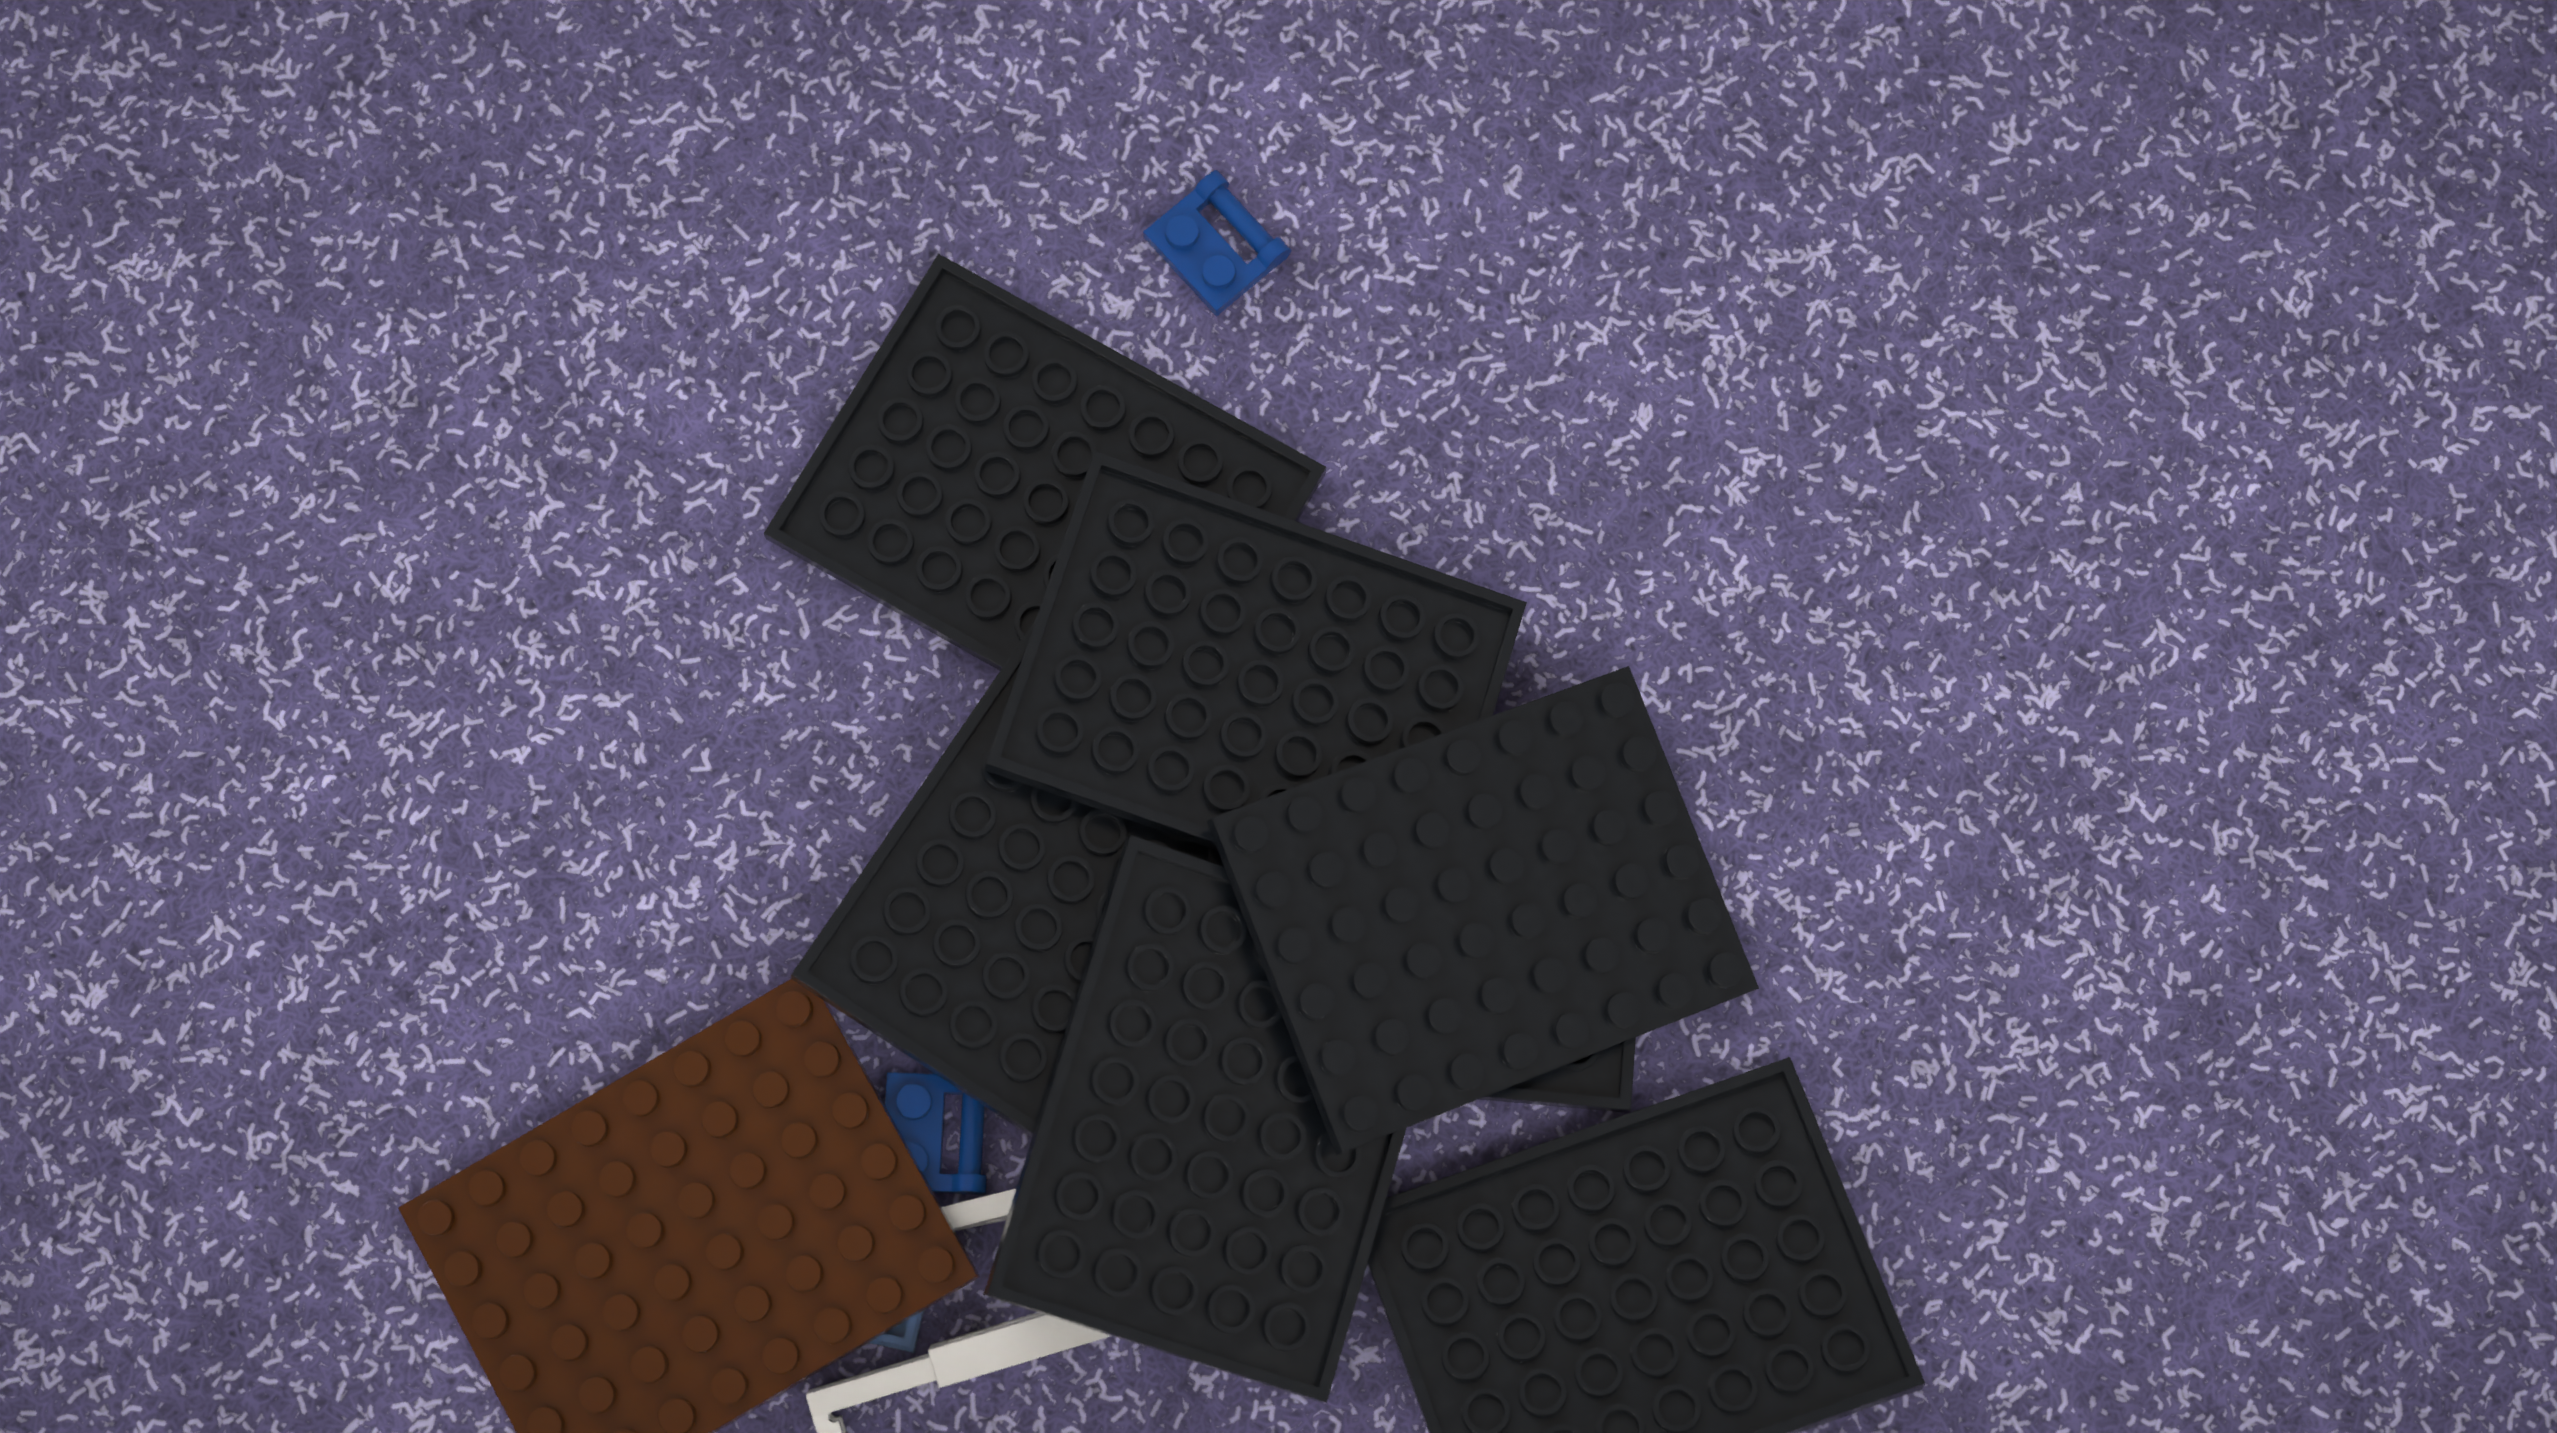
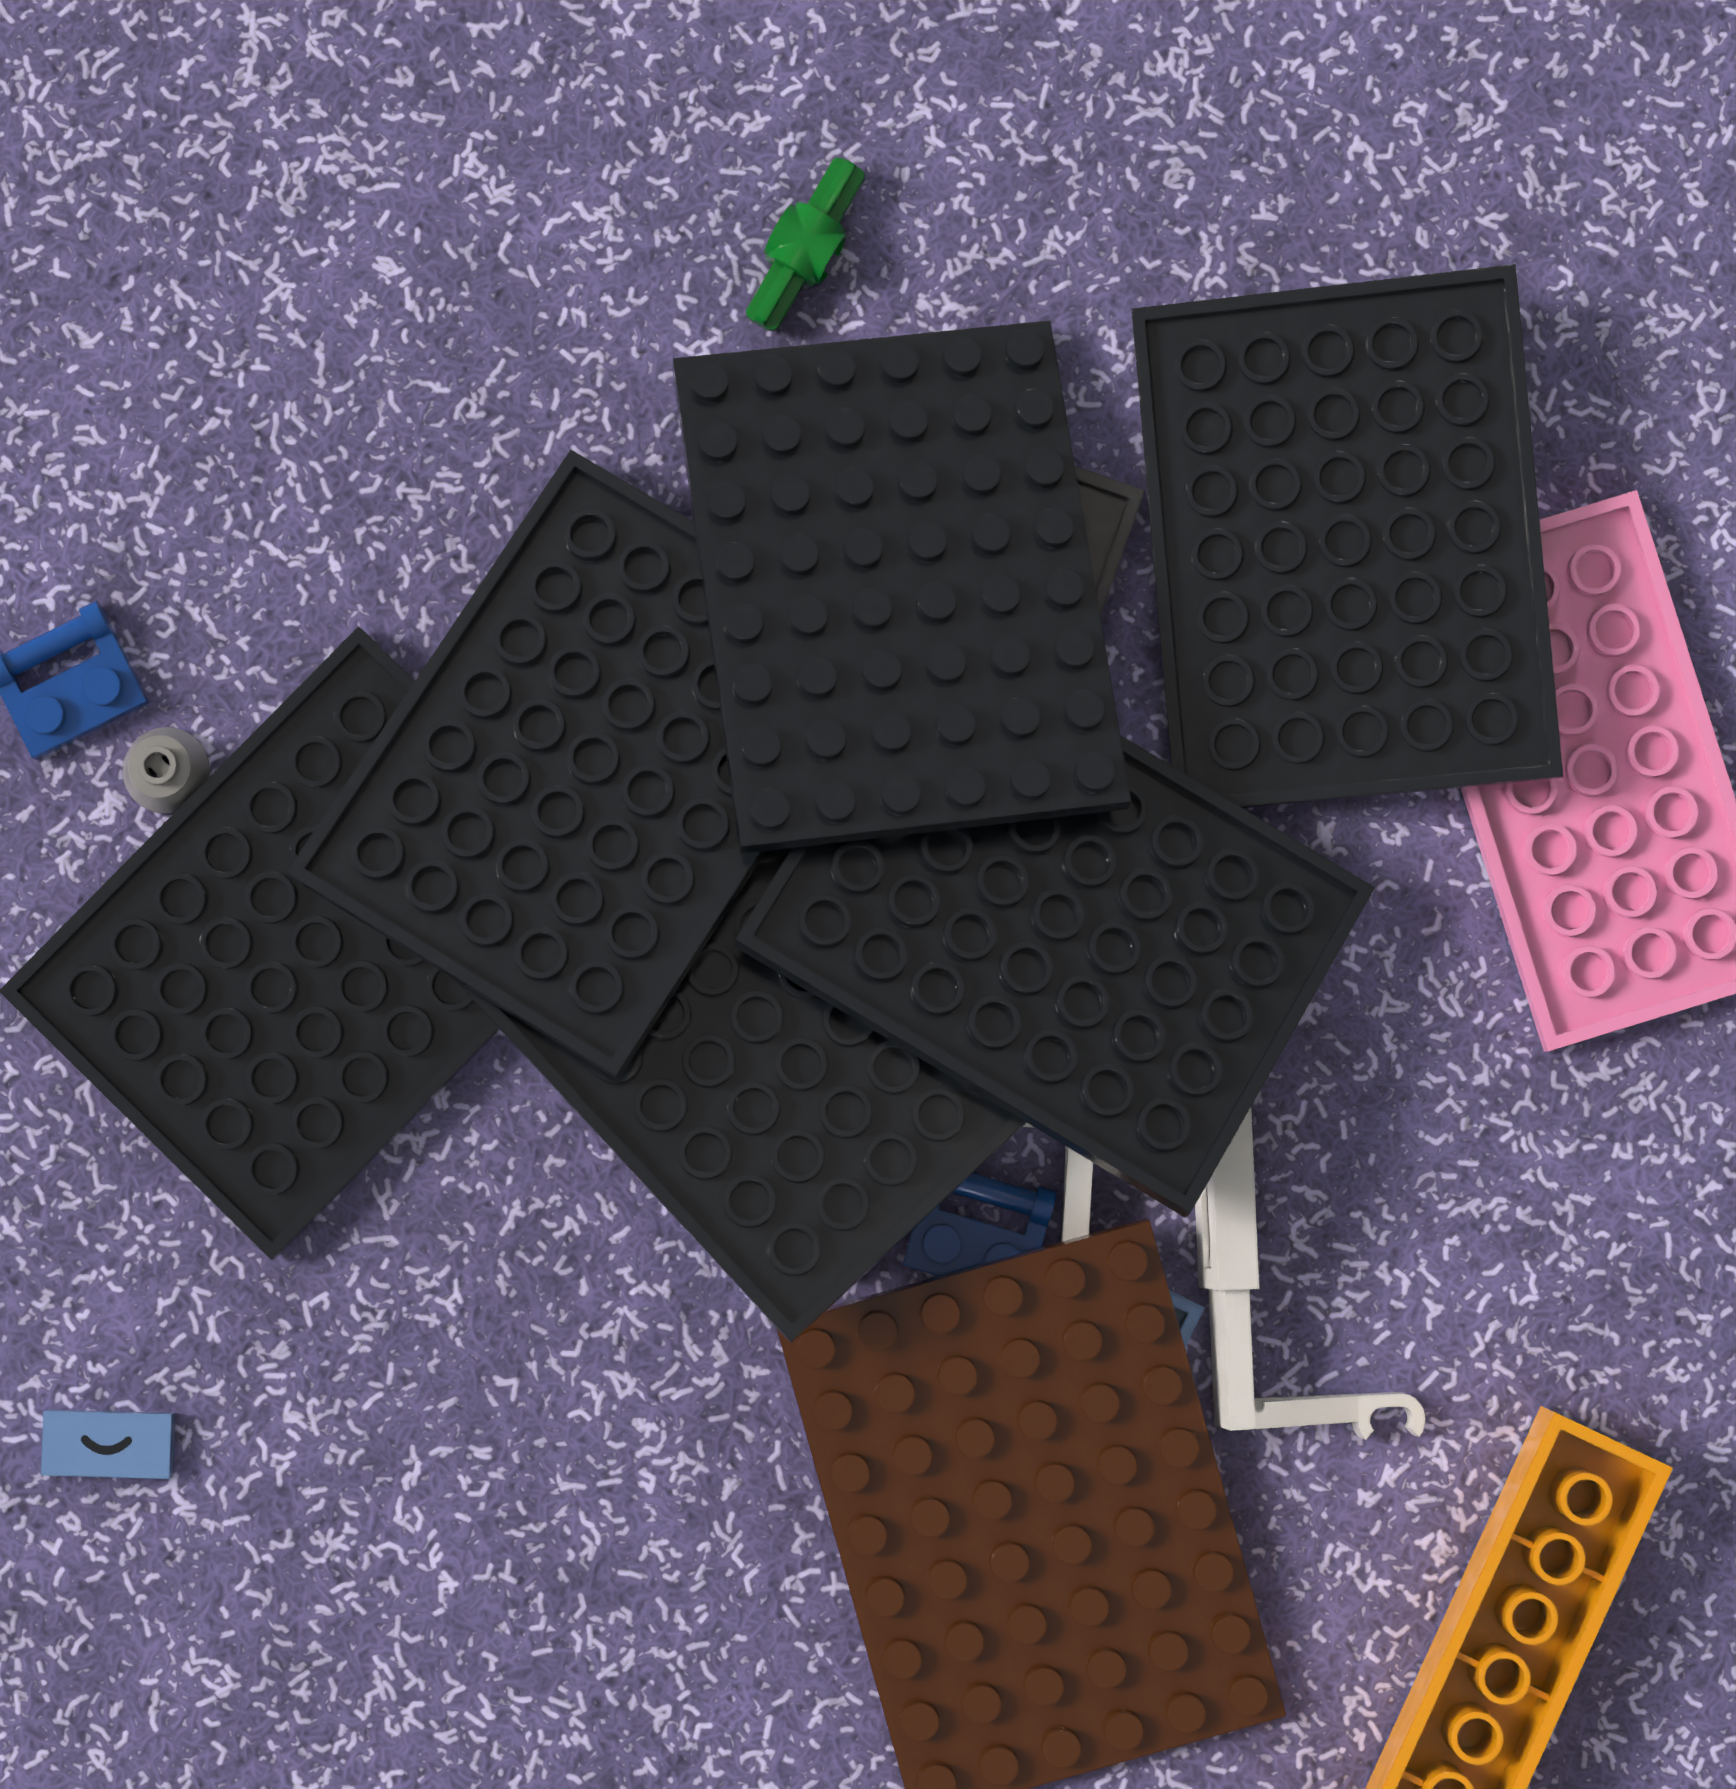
camera: 75 degrees left, 10 degrees up
(576, 442) = (108, 1444): none -> medium blue tile
(1155, 351) = (174, 782): none -> light grey cone
(1765, 758) = (804, 244): none -> green axle

